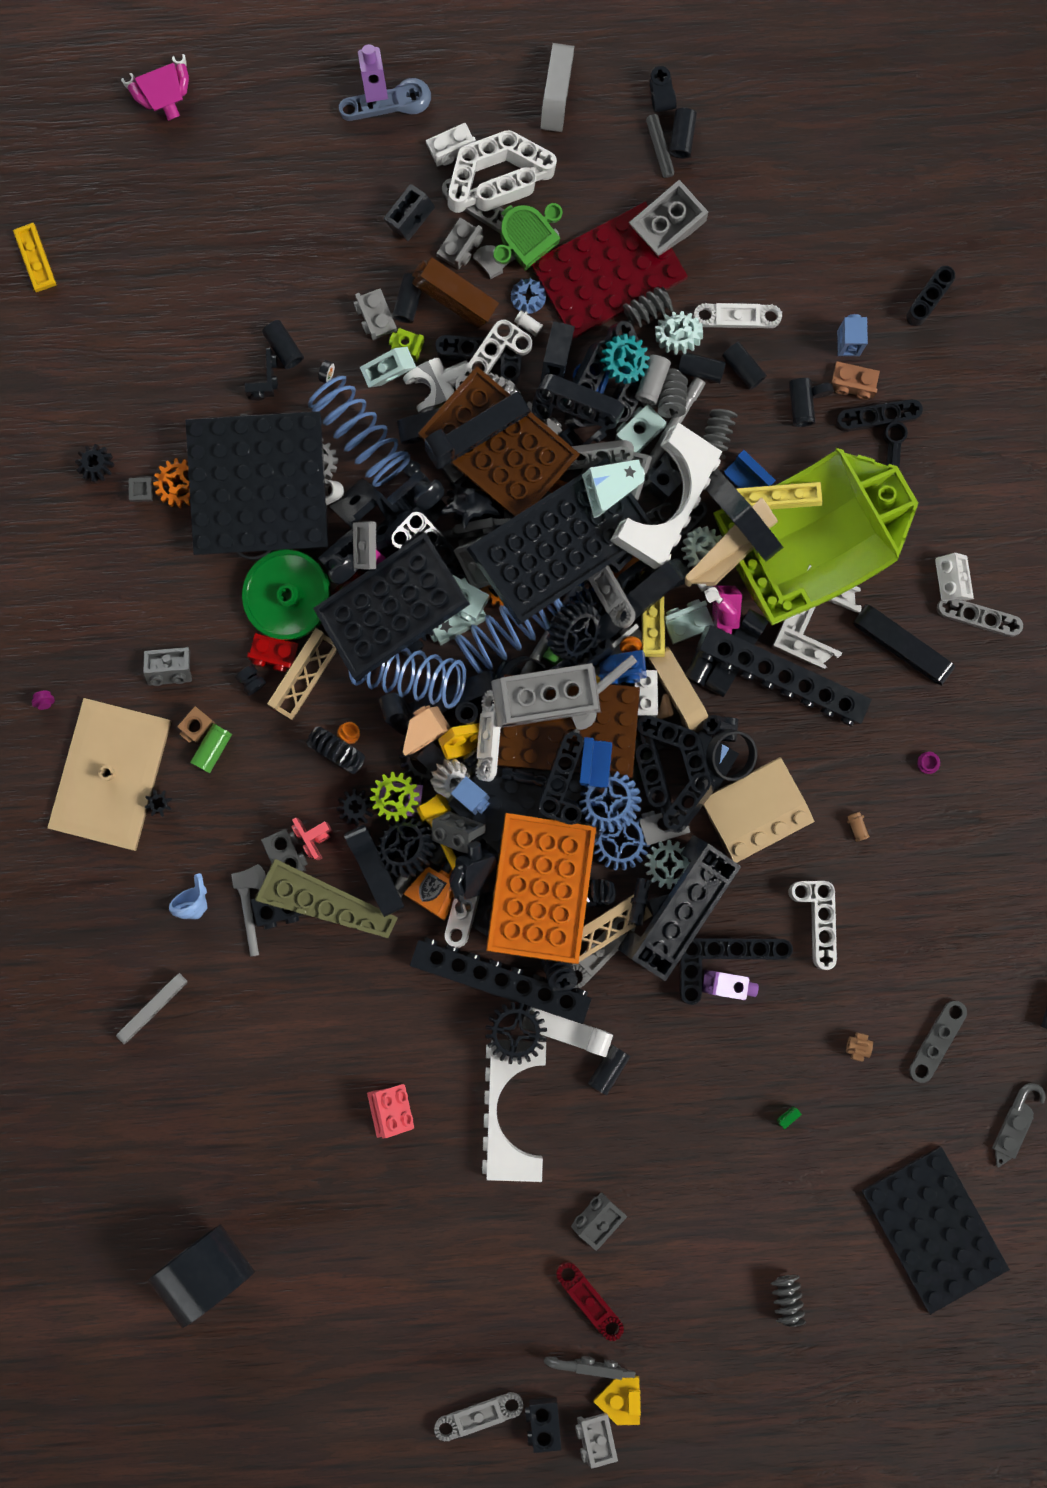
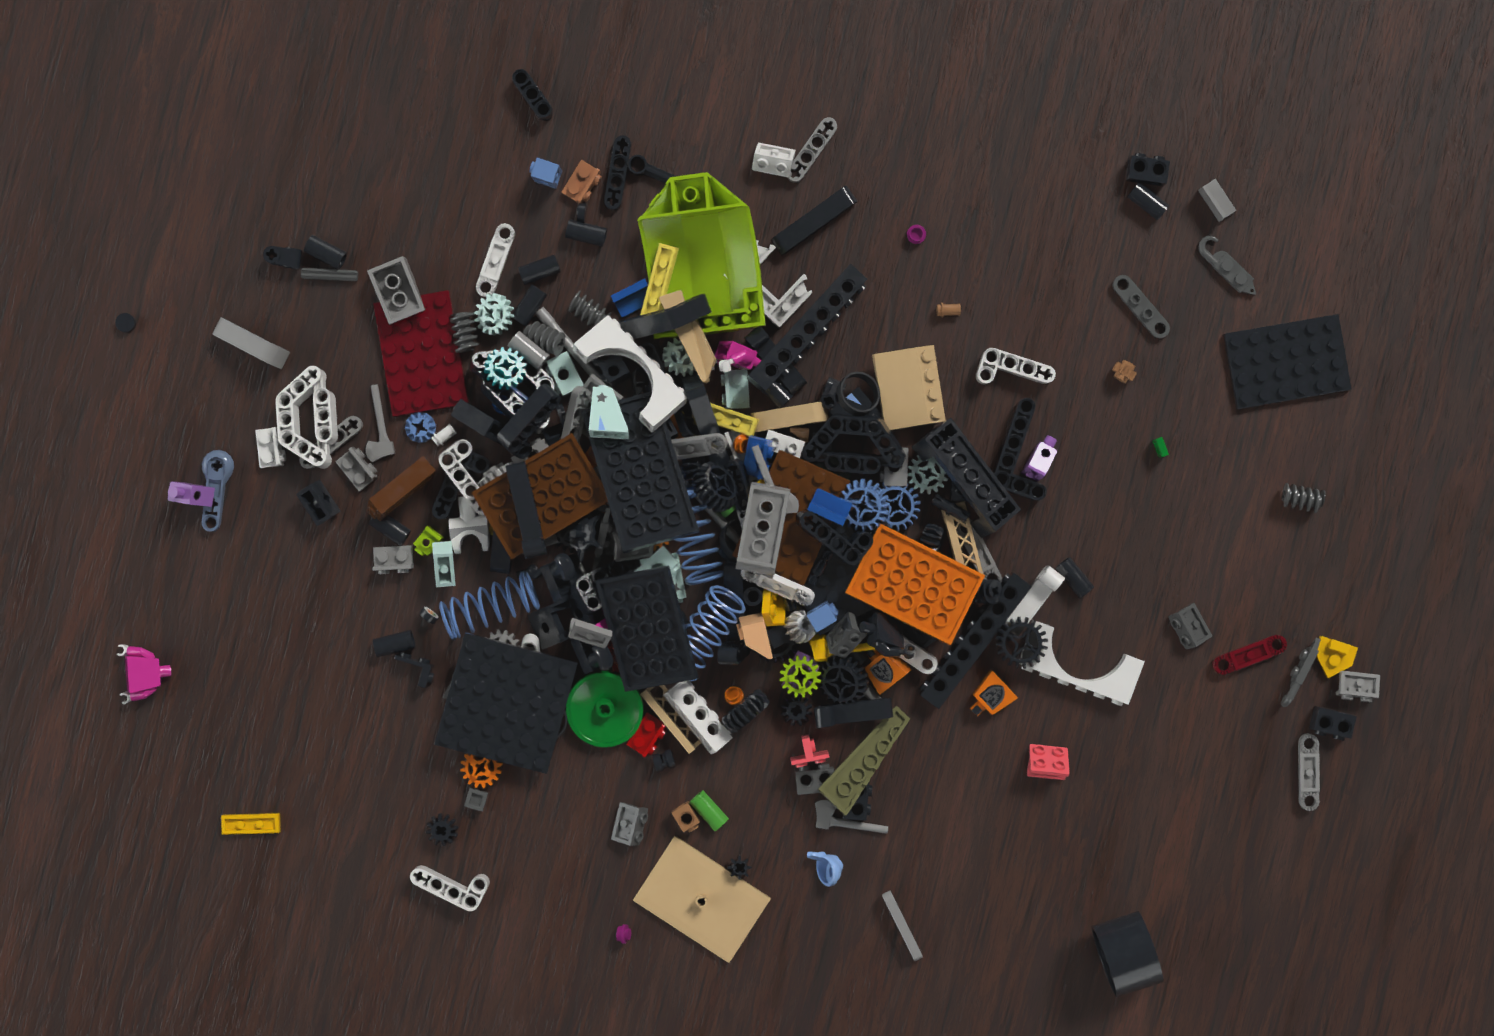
camera: 65 degrees left, 5 degrees up
(35, 488) = (447, 884): none -> white beam
(325, 667) = (698, 727): none -> white brick
(445, 1021) = (992, 695): none -> orange torso
(527, 234) = (370, 411): bright green piece -> none

